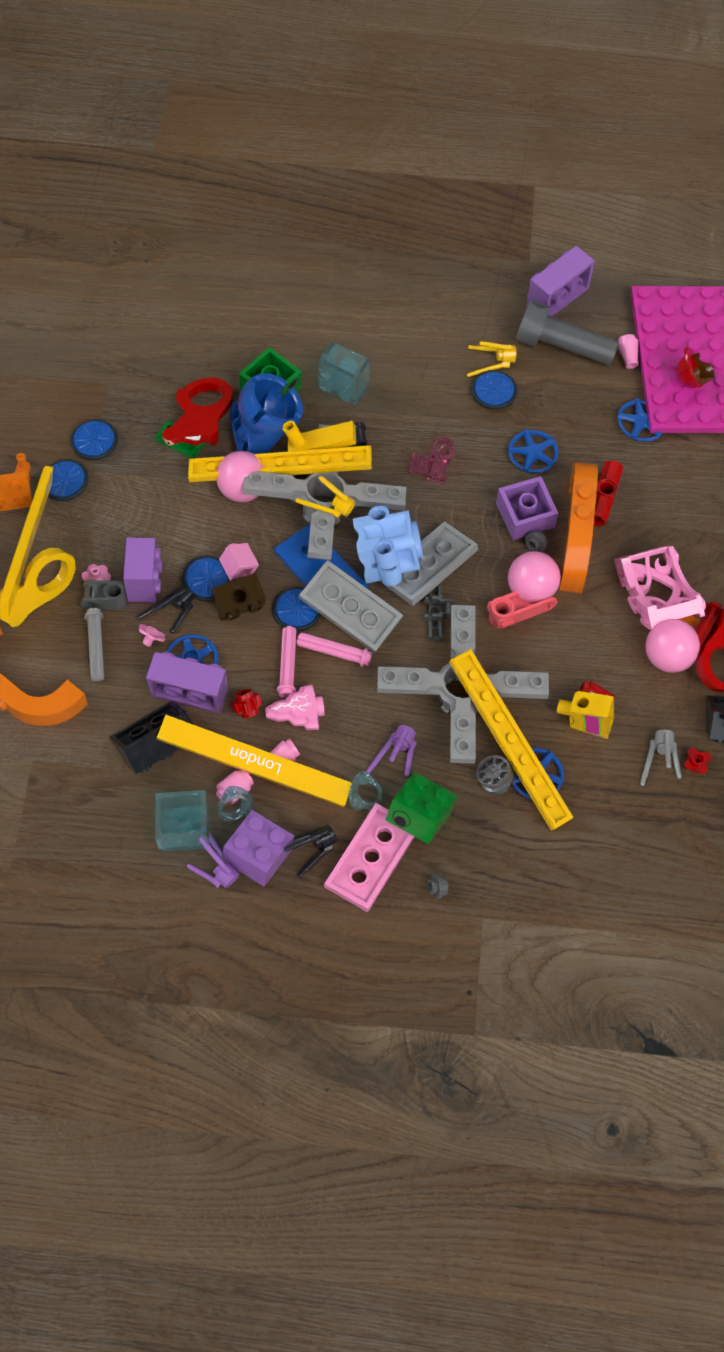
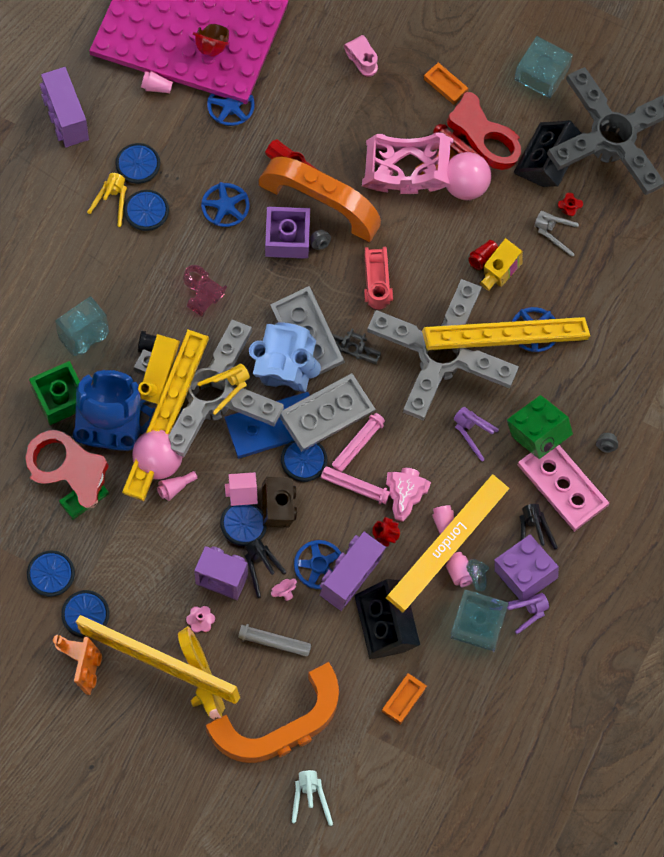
camera: 70 degrees left, 5 degrees up
(77, 782) = (404, 698): none -> orange tile
(101, 595) = (226, 621): dark grey piece -> none
(217, 503) = (170, 487): none -> bright pink cone
(355, 799) = (507, 477): clear light blue piece -> none
(495, 775) = (529, 359): flat silver wheel -> none
(534, 576) = (358, 254): bright pink piece -> none
(539, 366) = (138, 163): none -> blue wheel
(540, 326) = (102, 144): dark grey piece -> none

